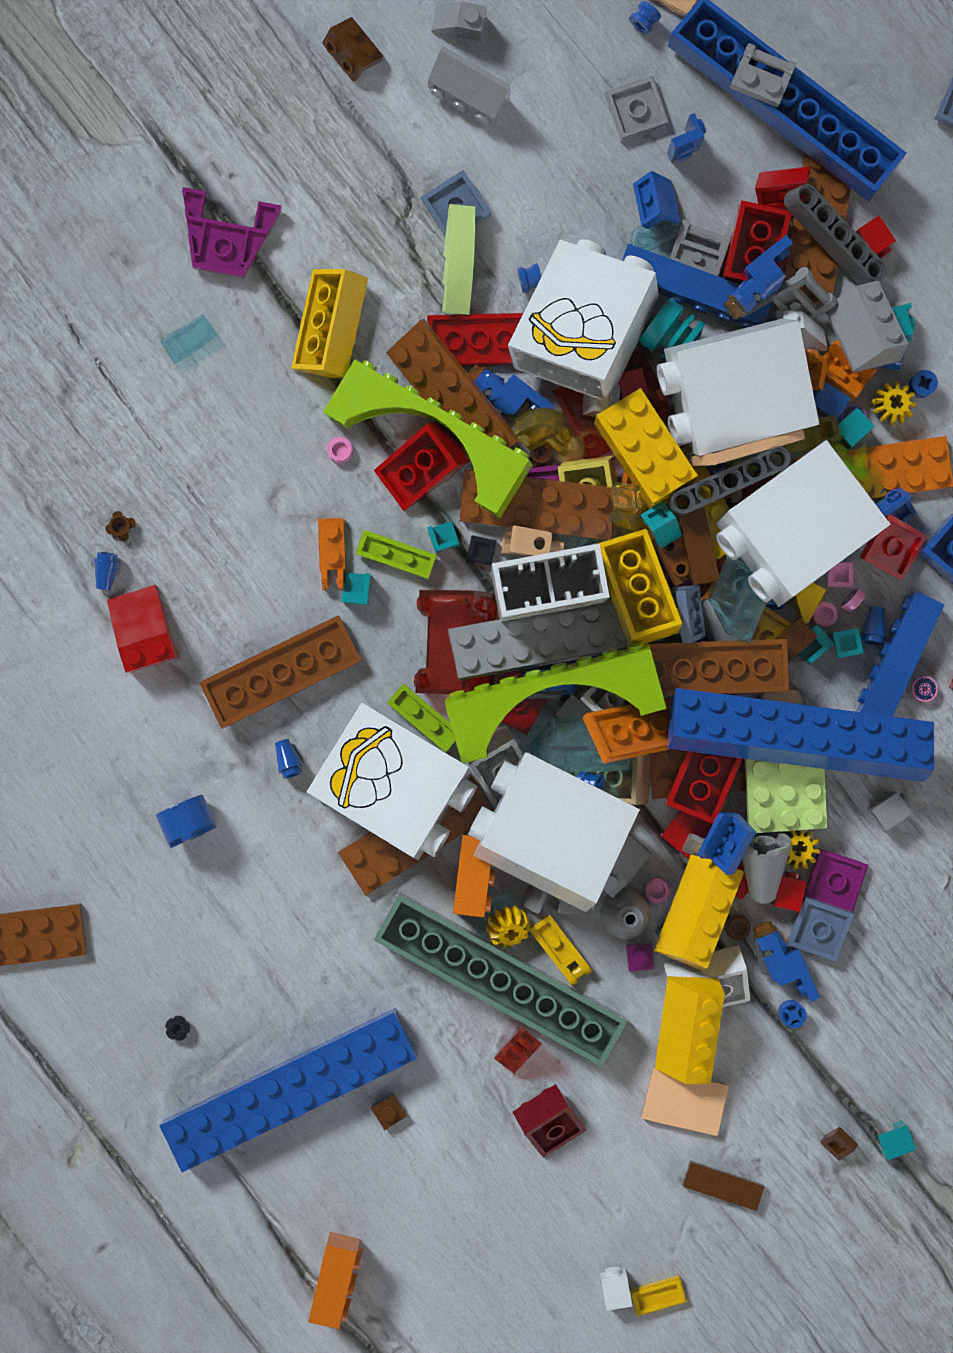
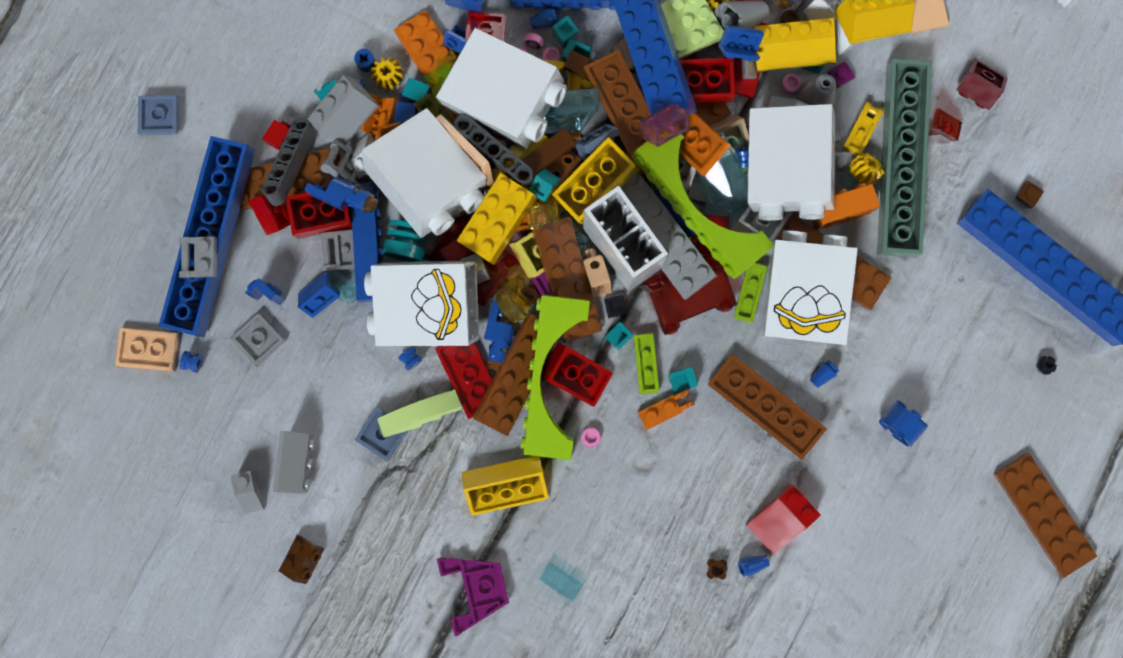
camera: 110 degrees left, 5 degrees down
(662, 693) = (665, 125): none -> clear pink brick

